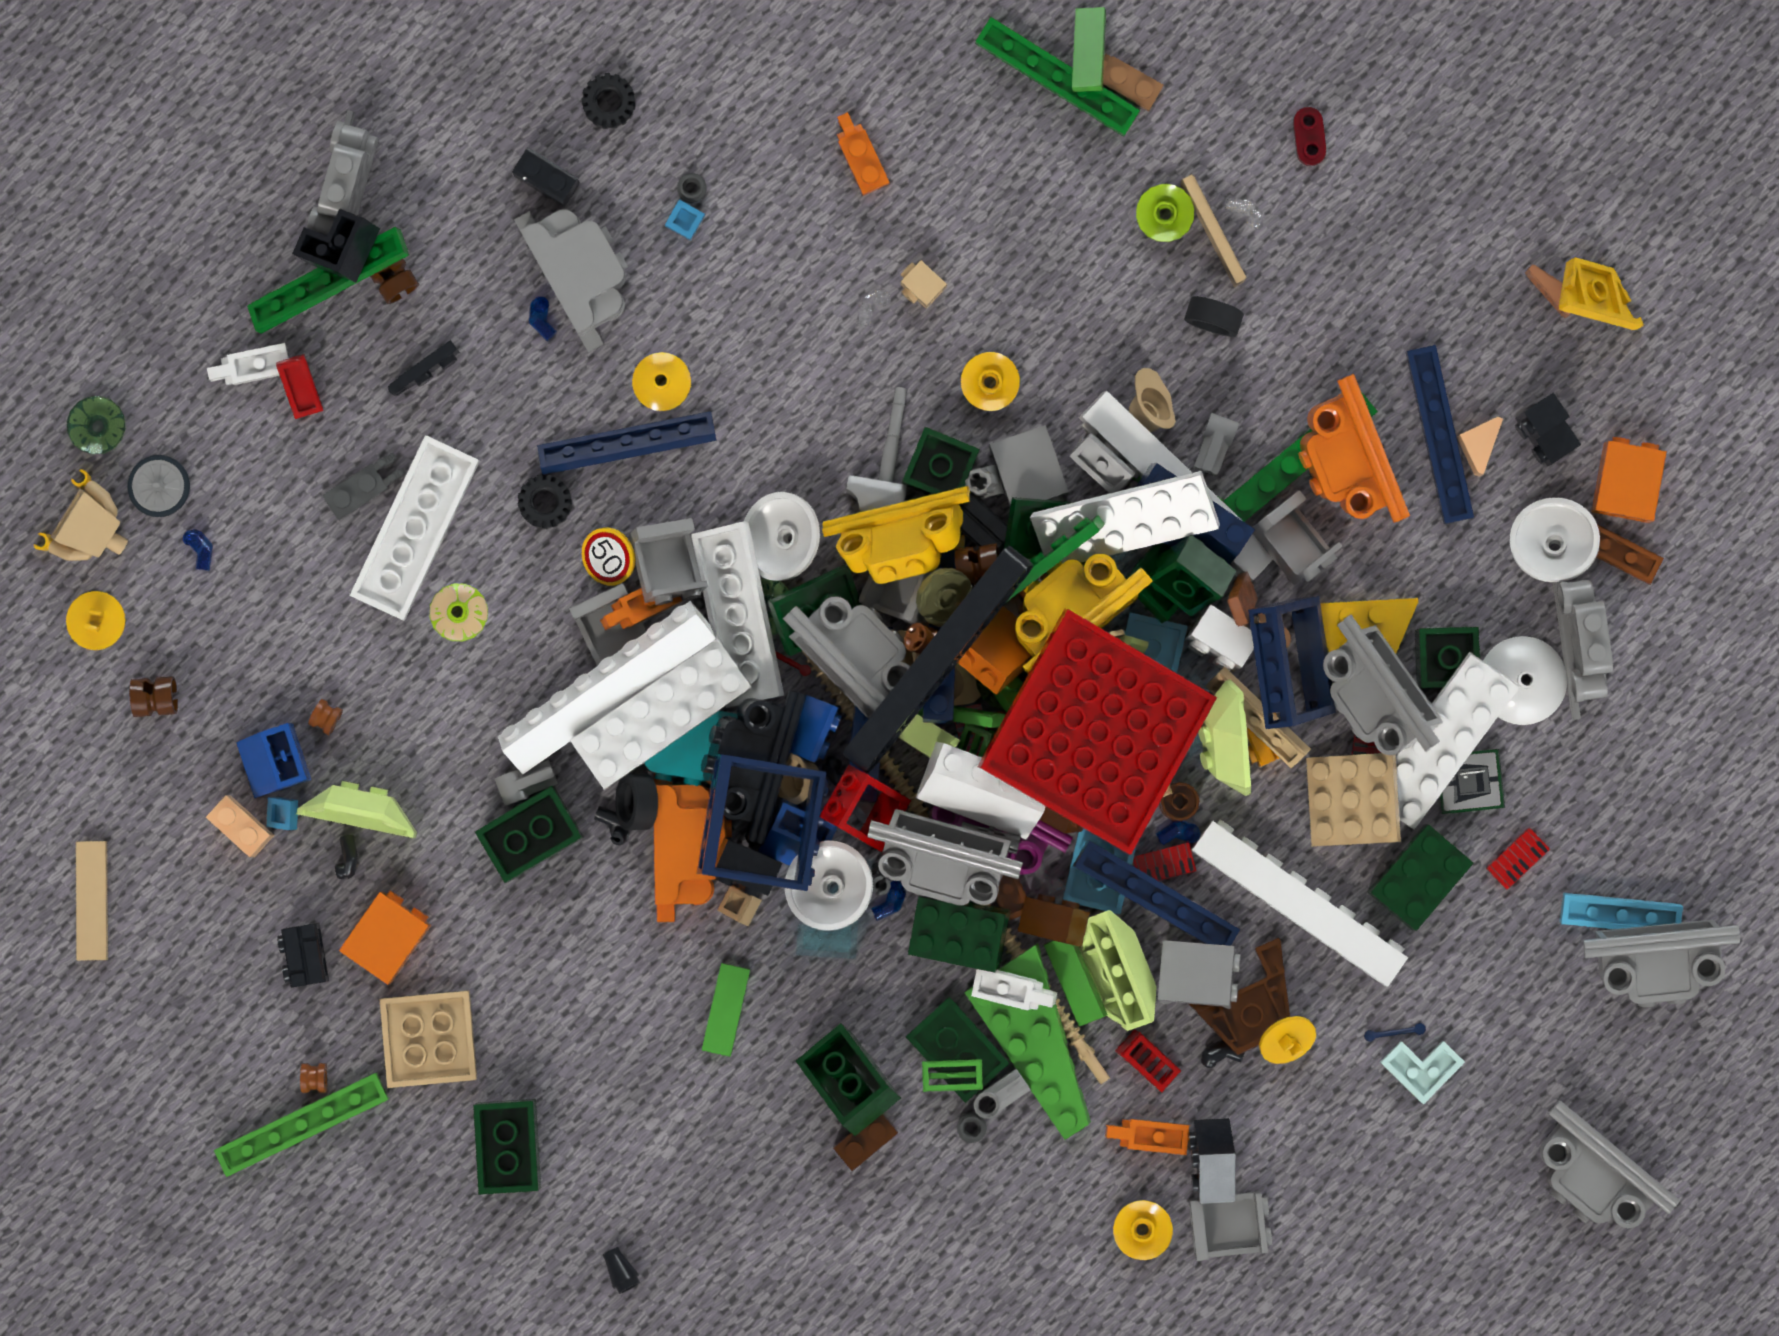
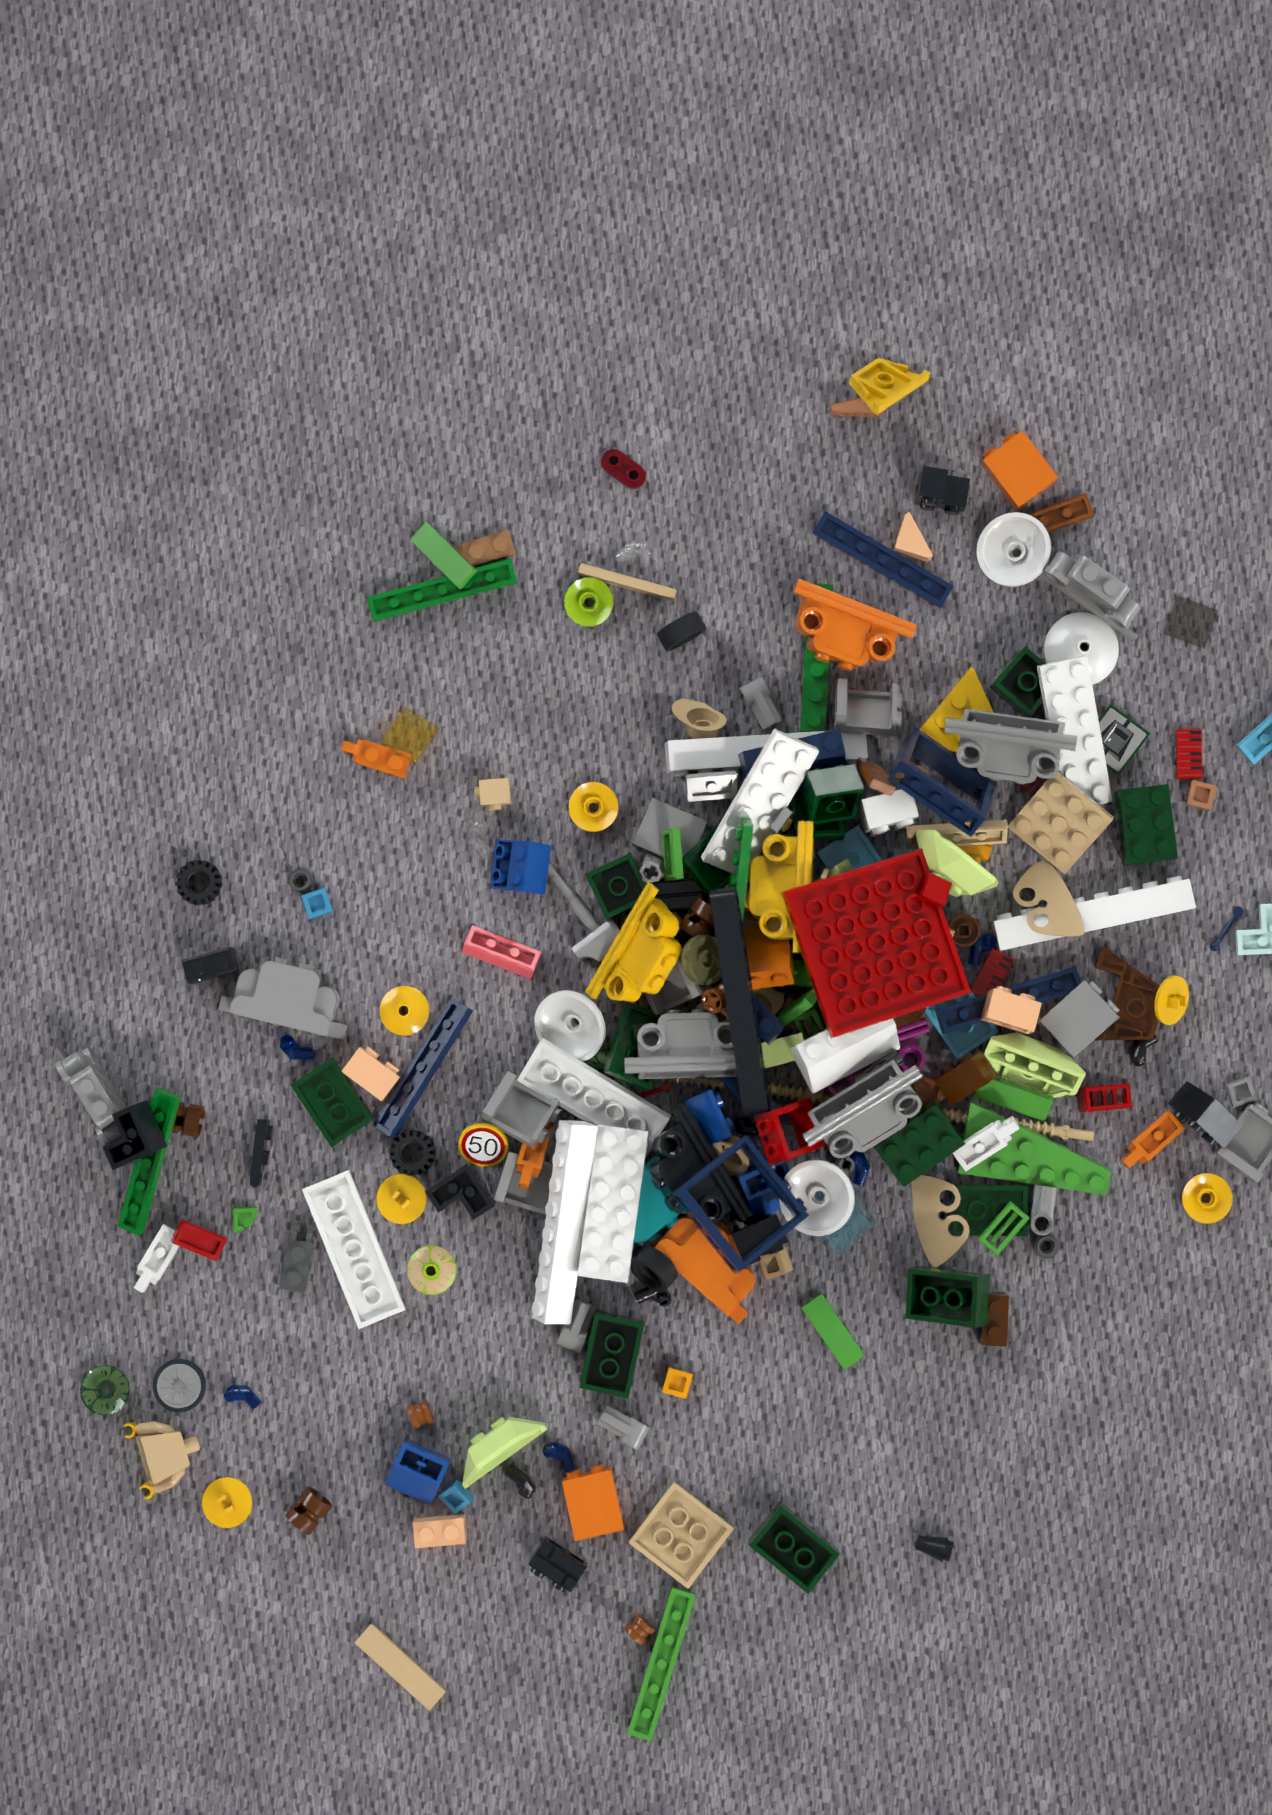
camera: 40 degrees left, 0 degrees up
(354, 407) = (243, 1217): none -> bright green tile
(403, 870) = (560, 1452): none -> clear blue arm
(477, 906) = (626, 1427): none -> light grey piece
(496, 529) = (401, 1198): none -> yellow piece
(524, 392) = (332, 1102): none -> dark green plate
(557, 573) = (461, 1185): none -> black brick
(557, 915) = (677, 1382): none -> light orange plate
(581, 402) = (371, 1073): none -> light nougat brick
(786, 420) = (500, 955): none -> coral slope
(879, 366) = (520, 866): none -> blue slope
(893, 1016) = (932, 1231): none -> tan piece
(905, 165) = (410, 735): none -> clear yellow piece
(1011, 486) = (672, 854): none -> bright green tile
(1128, 555) = (783, 822): none -> tile
(1148, 905) = (1011, 1010): none -> light nougat brick
(1191, 741) = (935, 889): none -> red tile
(1263, 1175) = (1241, 1091): none -> light grey tile
(1279, 868) = (1060, 908): none -> tan piece
(1491, 901) = (1200, 795): none -> nougat plate
(1635, 754) = (1190, 622): none -> clear smoke piece

